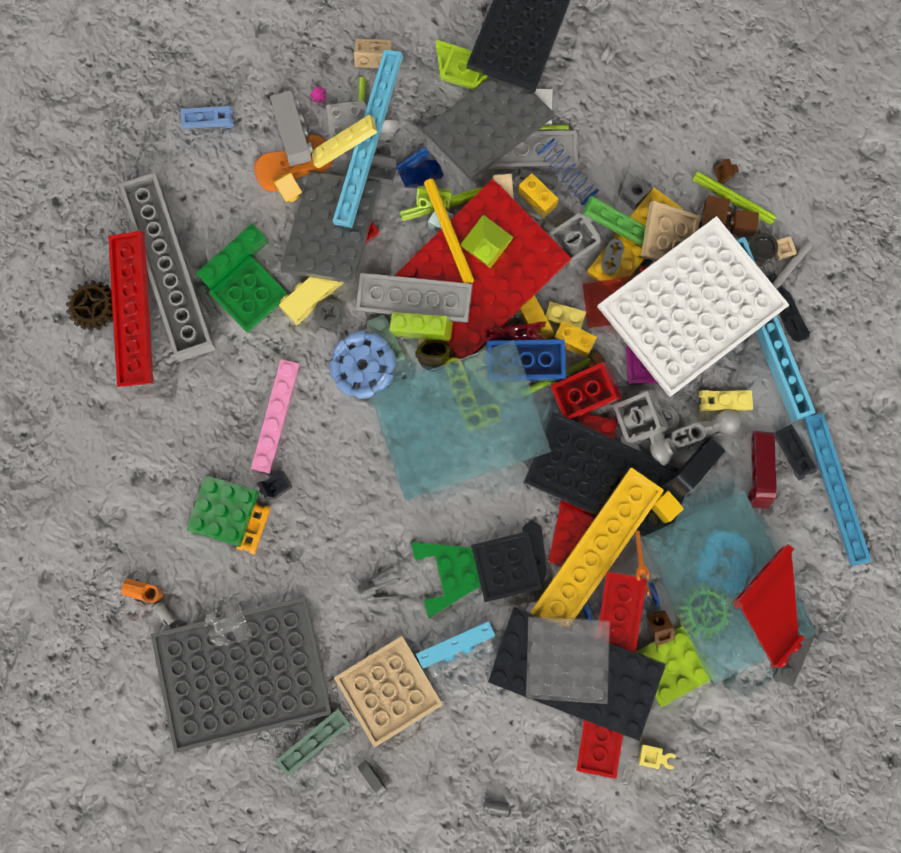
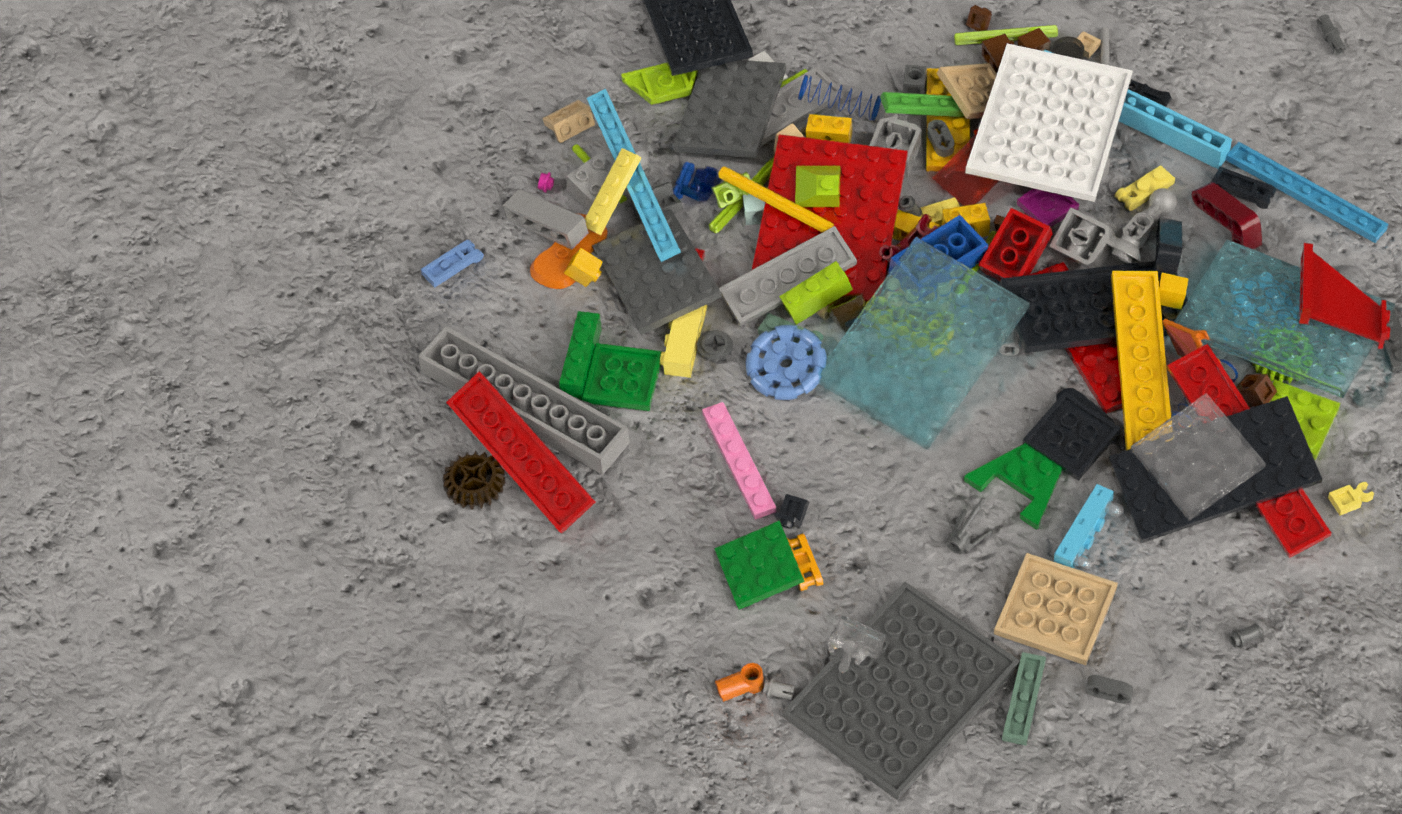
camera: 30 degrees left, 25 degrees down
(542, 298) = (908, 204): none -> dark grey pin

